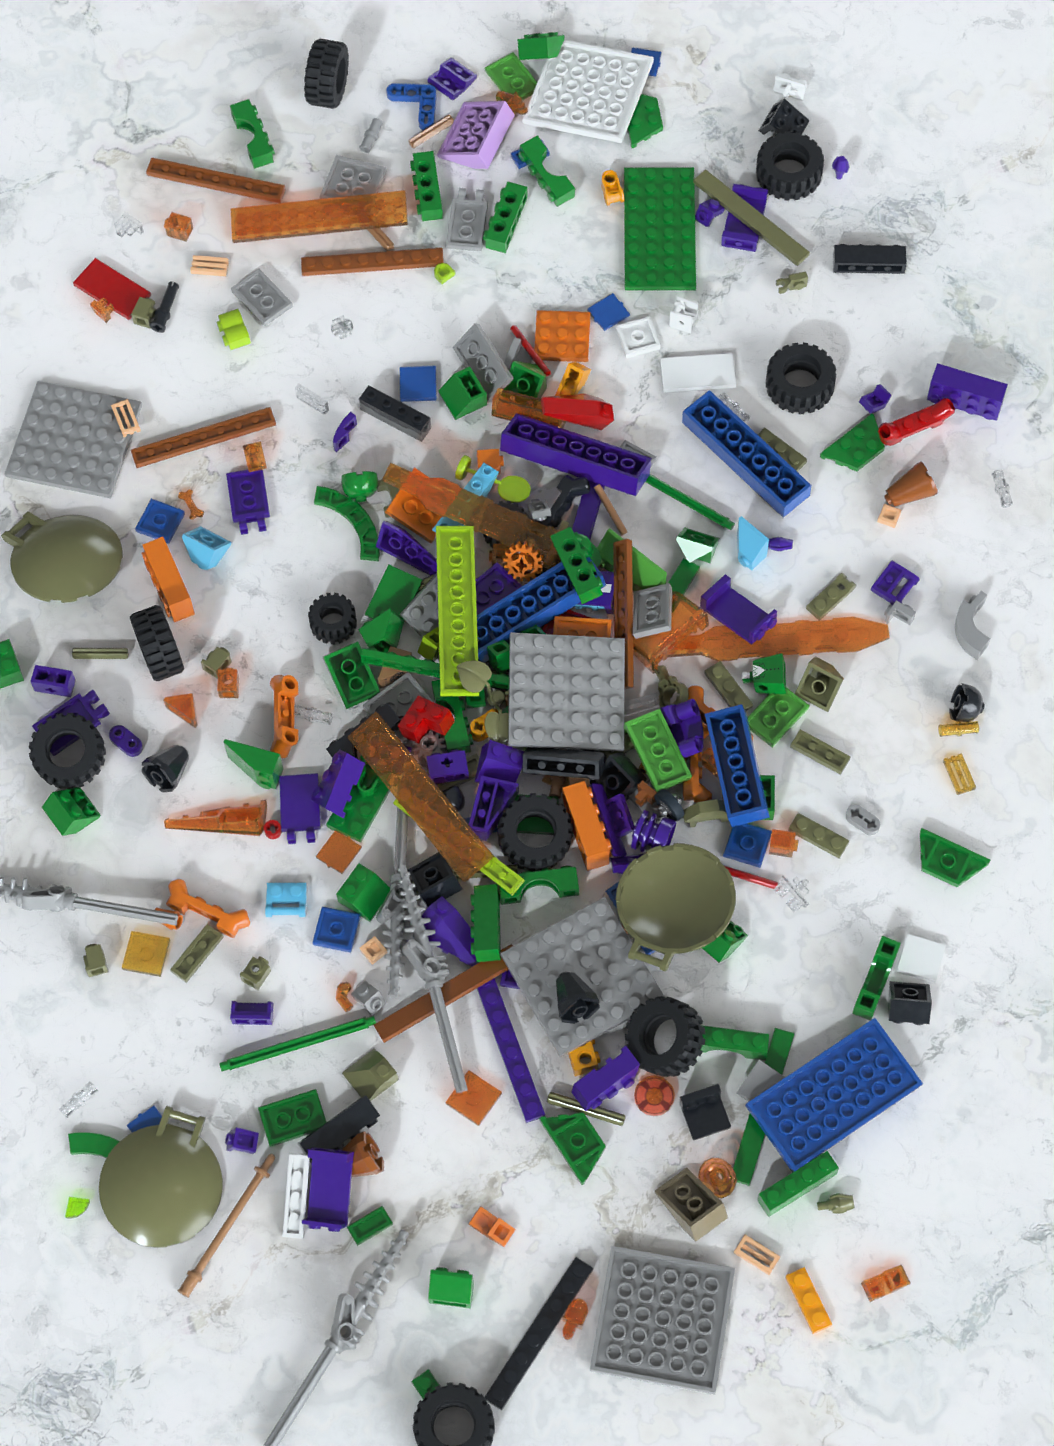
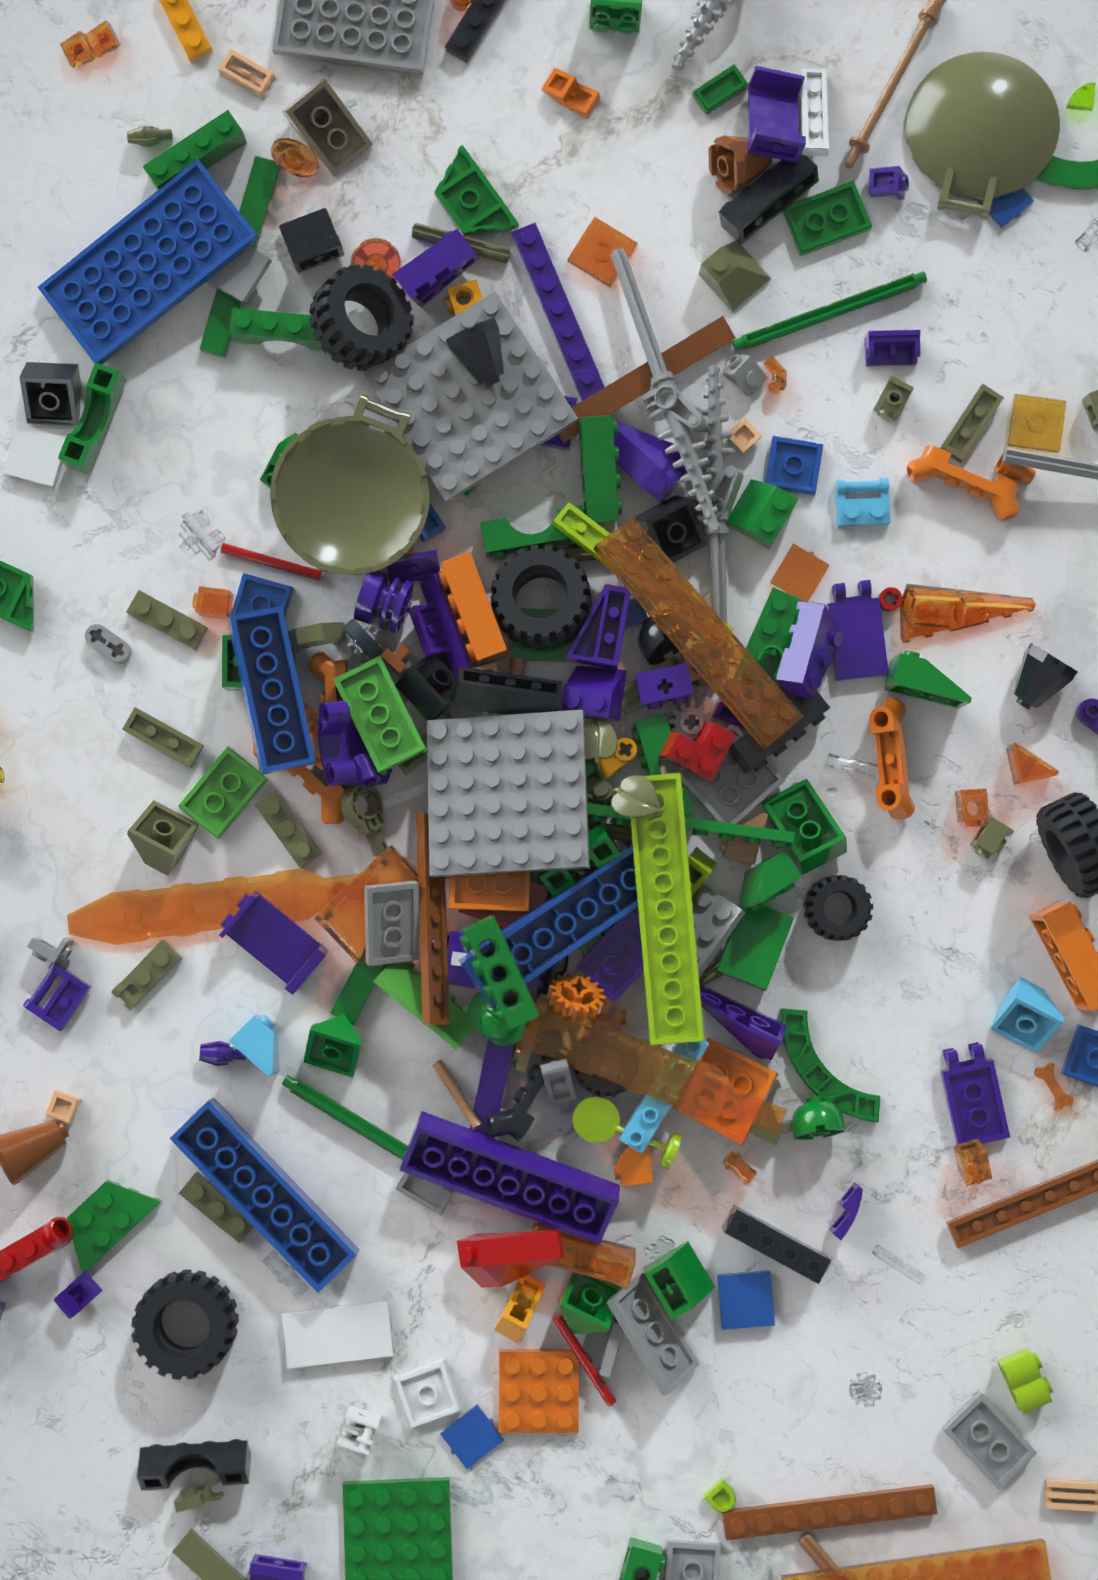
camera: 170 degrees right, 20 degrees up
(416, 461) = (739, 1167): none -> clear orange pin
(768, 675) = (233, 844): green torso -> none
(816, 299) = (162, 1464): none -> black arch
(869, 259) = (82, 1543): black brick -> none

